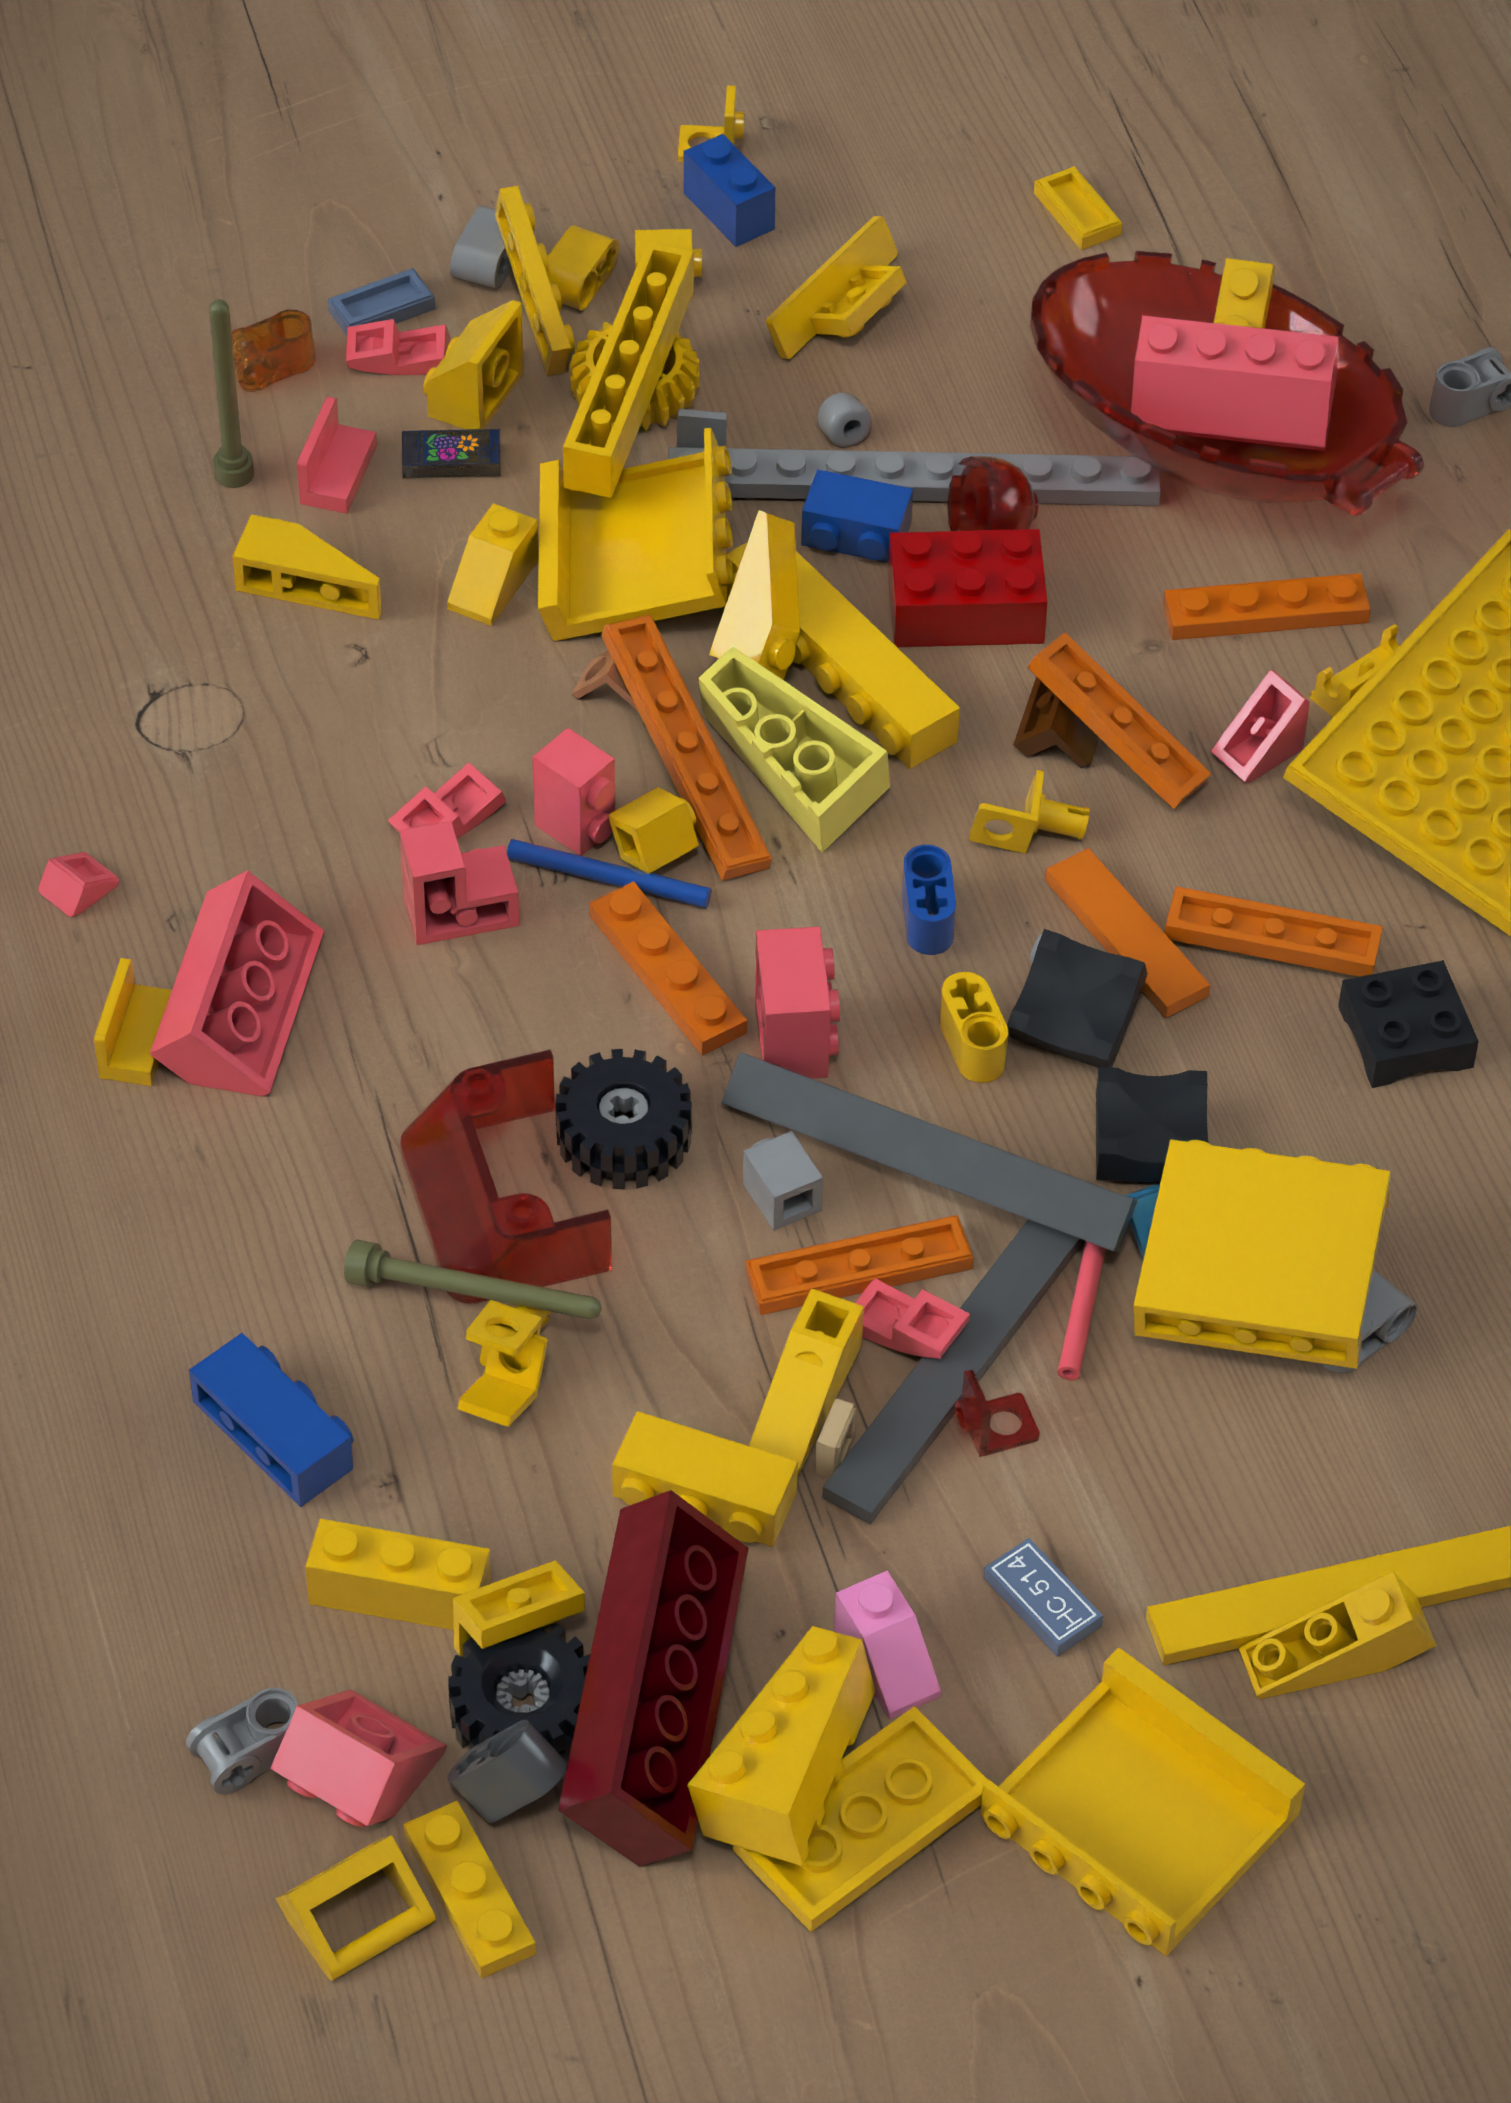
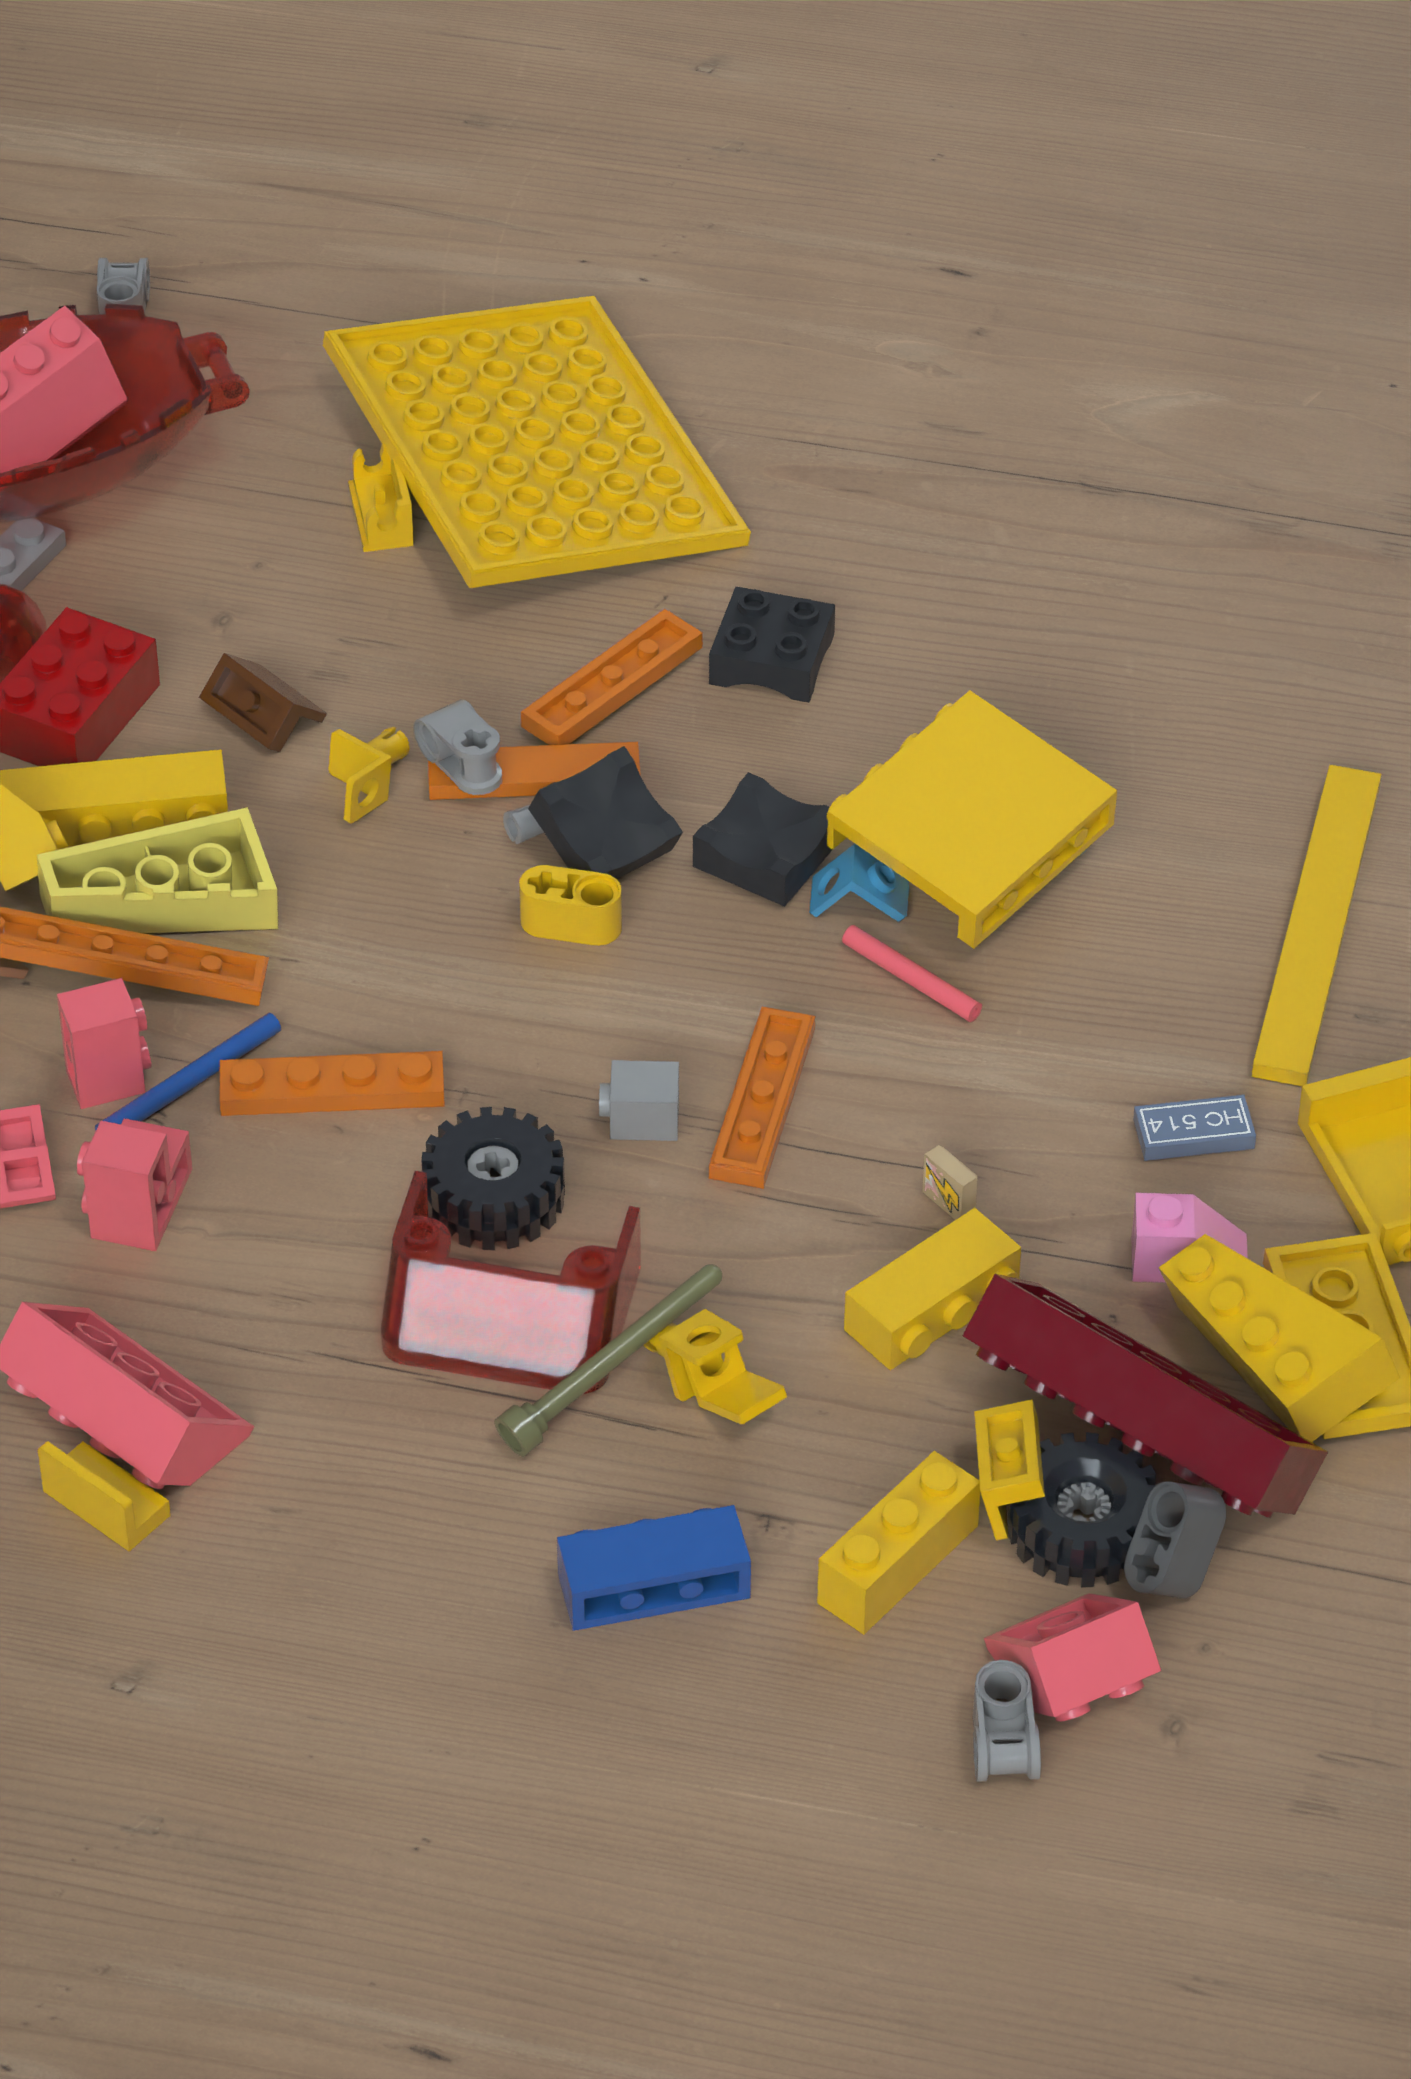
camera: 60 degrees left, 5 degrees down
(378, 1855) = (1201, 1727): yellow tile -> none
(469, 1889) = (1253, 1637): yellow plate -> none
(654, 830) = (180, 1016): yellow brick -> none
(796, 1000) = (469, 999): coral brick -> none
(809, 1375) = (876, 1167): yellow slope -> none
(907, 1324) = (864, 1082): coral slope -> none
(925, 891) = (405, 872): blue beam -> none
(929, 1392) = (904, 1063): dark grey tile -> none
(930, 1152) = (687, 990): dark grey tile -> none
(975, 1418) = (992, 1077): clear red bracket -> none
(1092, 864) = (461, 747): none -> light grey piece
(1119, 720) = (319, 659): orange plate -> none
(1265, 729) = (393, 580): coral slope -> none
(1266, 606) = (245, 529): orange plate -> none
(1341, 1640) = (1365, 960): yellow slope -> none

